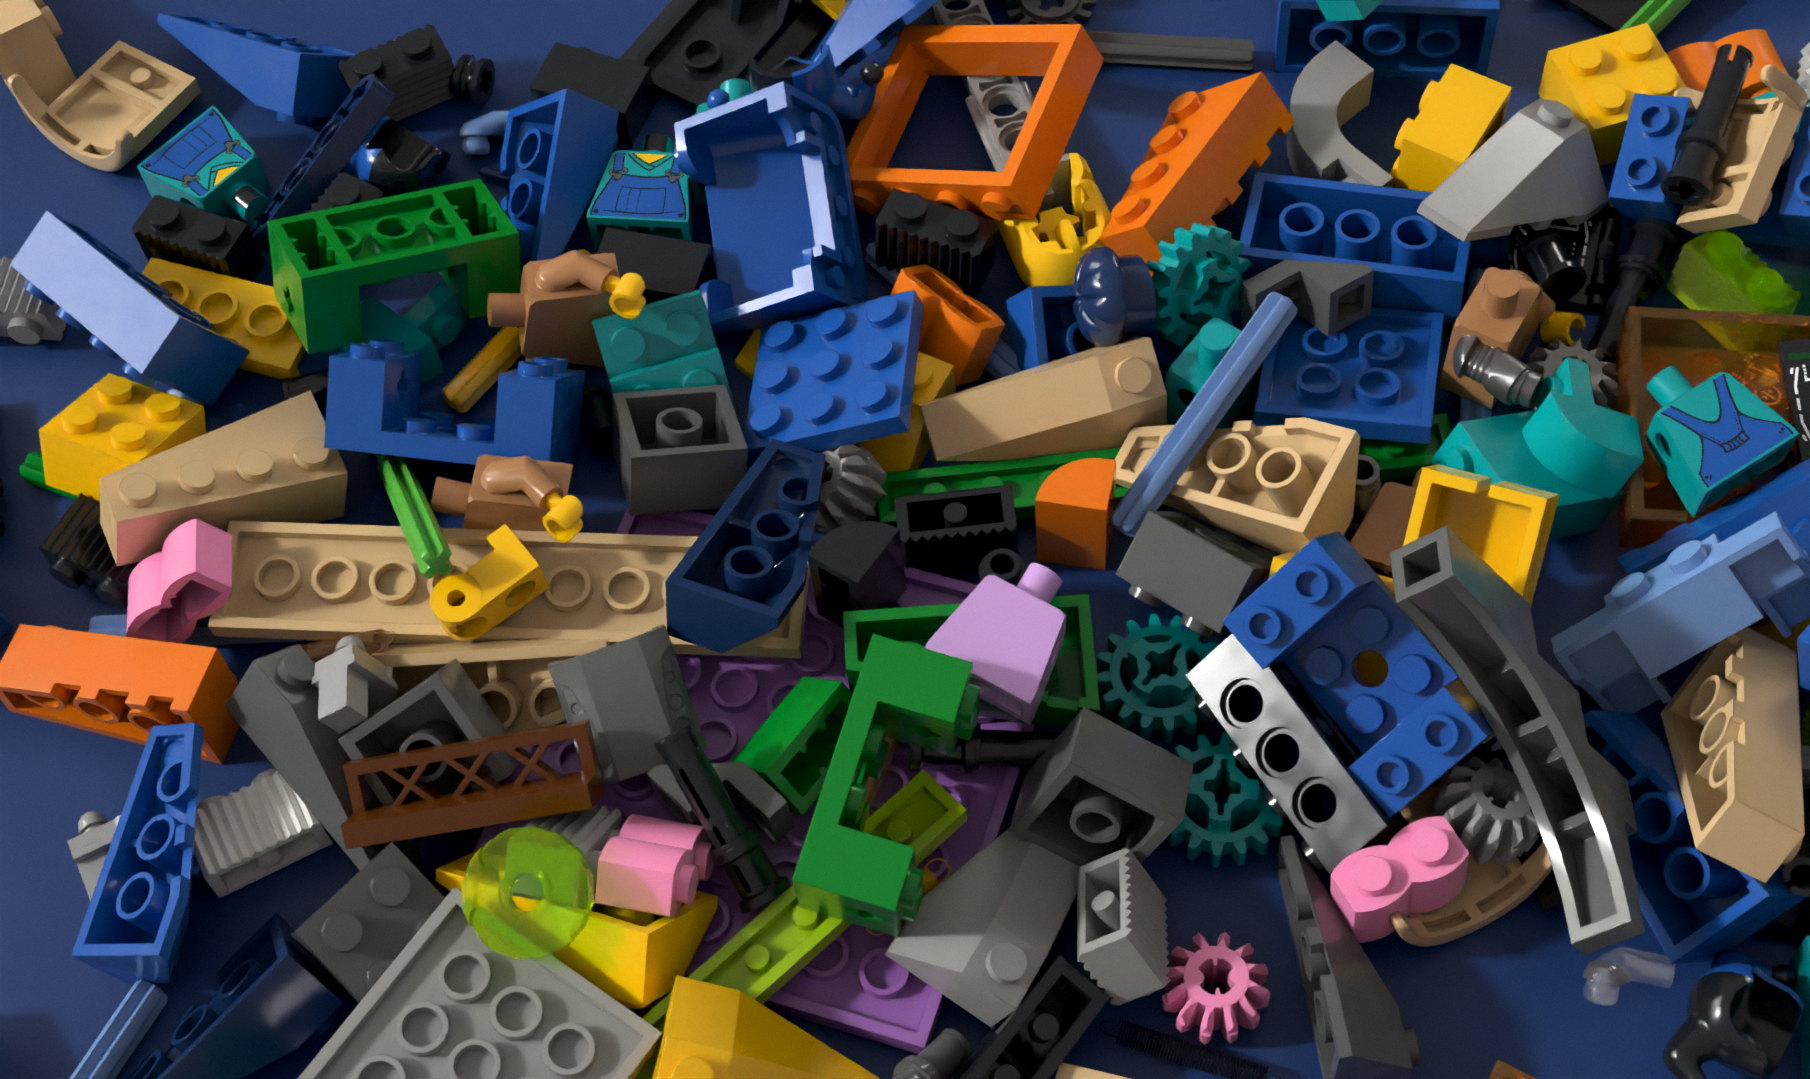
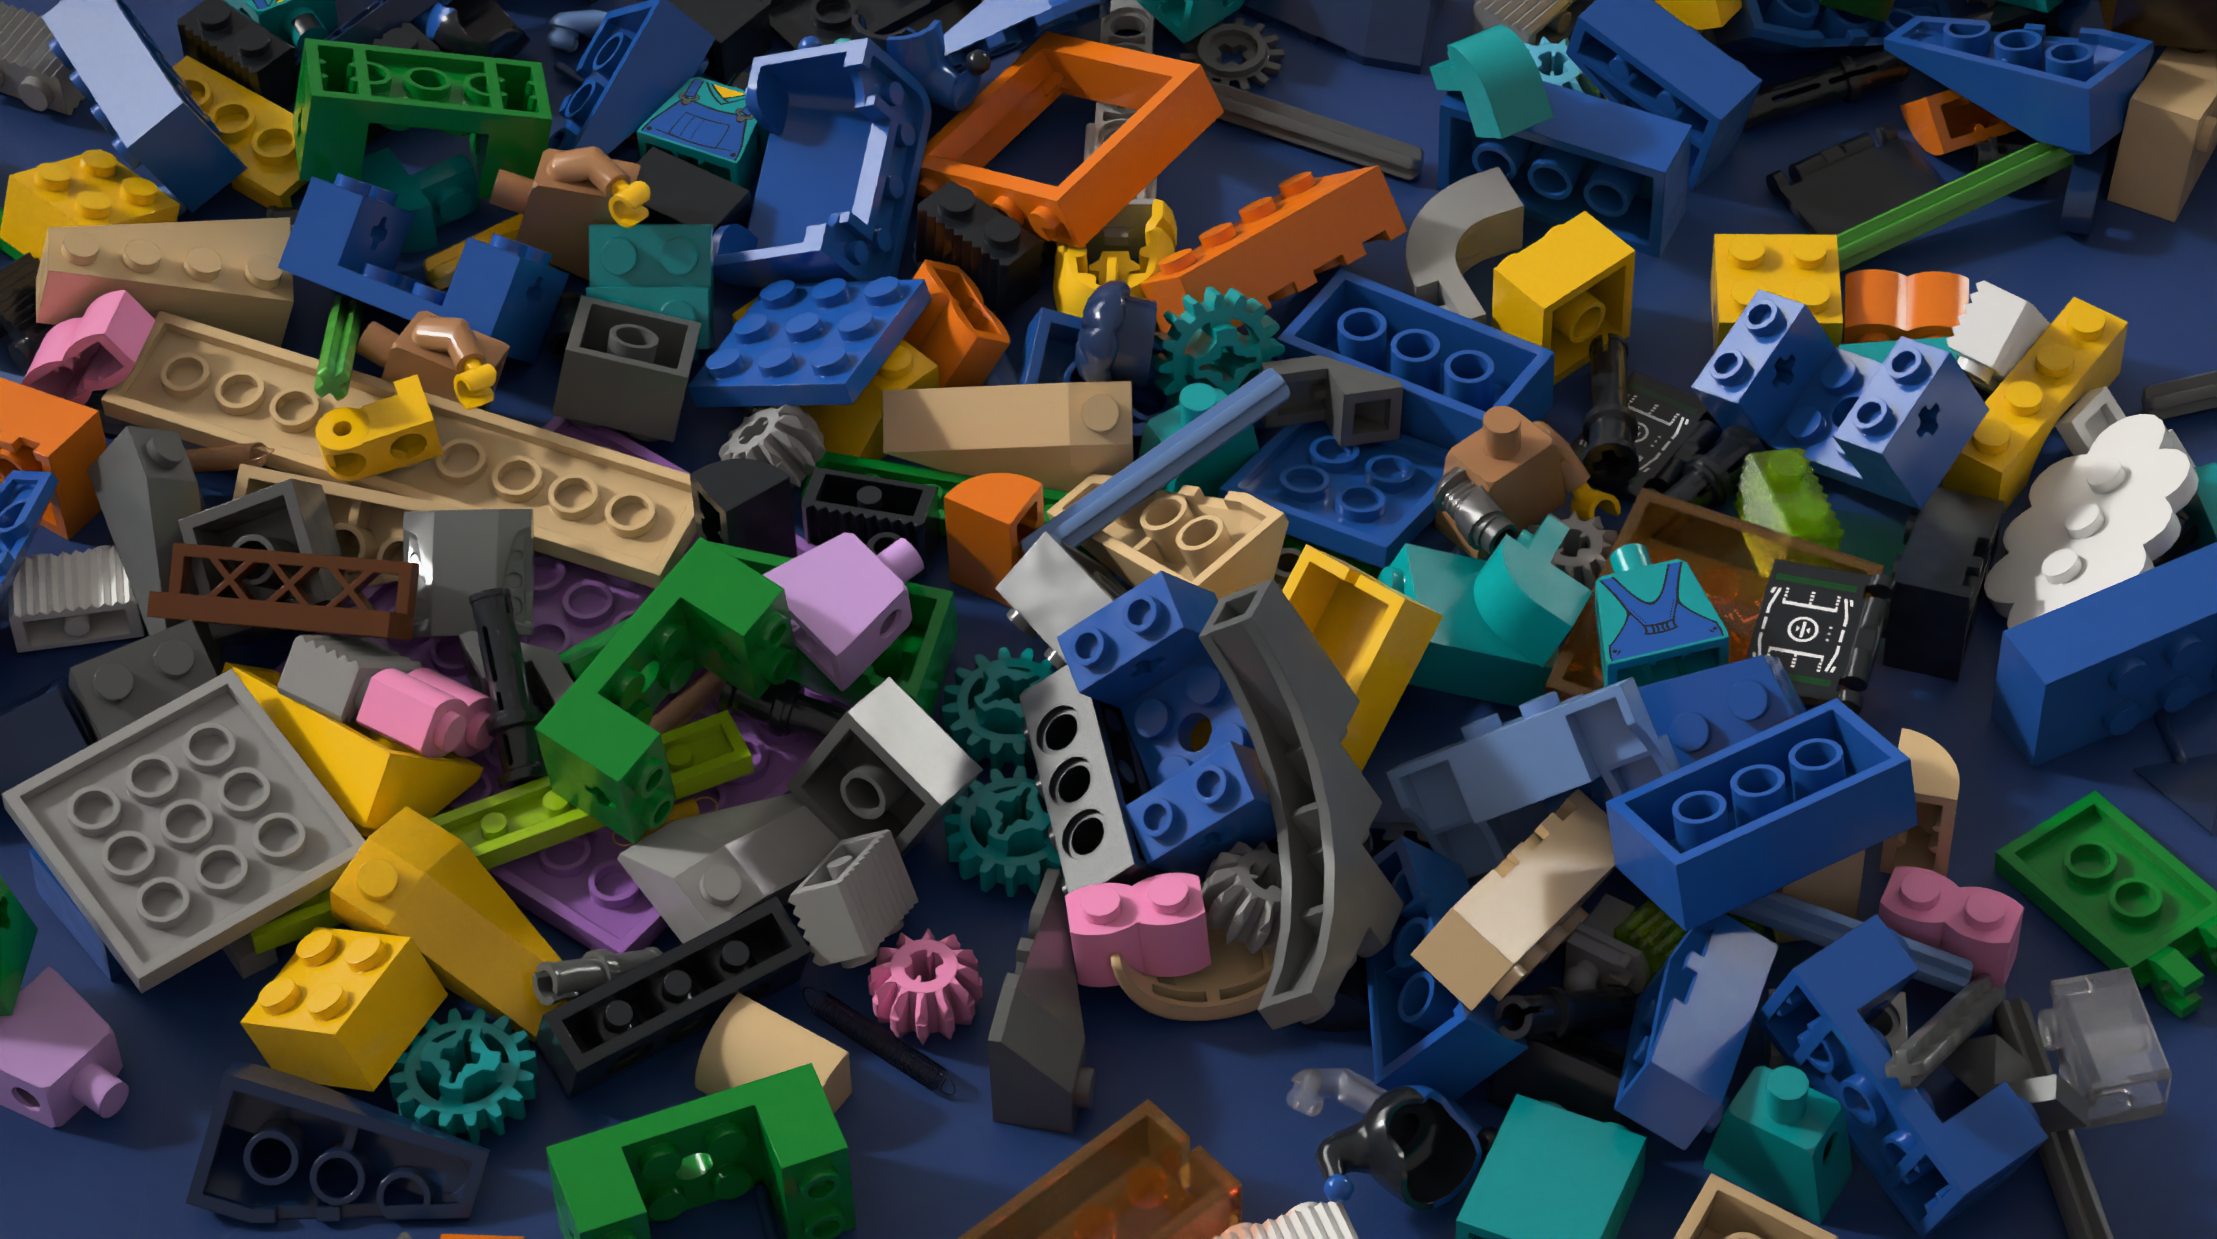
camera: 15 degrees right, 10 degrees down
(351, 685) = (210, 476): light grey piece -> none
(565, 900) = (313, 713): clear neon green tile -> none
(750, 555) = (639, 464): dark blue wedge -> none
(1525, 173) = (1619, 338): light grey wedge -> none
(1704, 145) = (1796, 353): black pin -> none
(1757, 146) = (1842, 369): tan piece -> none

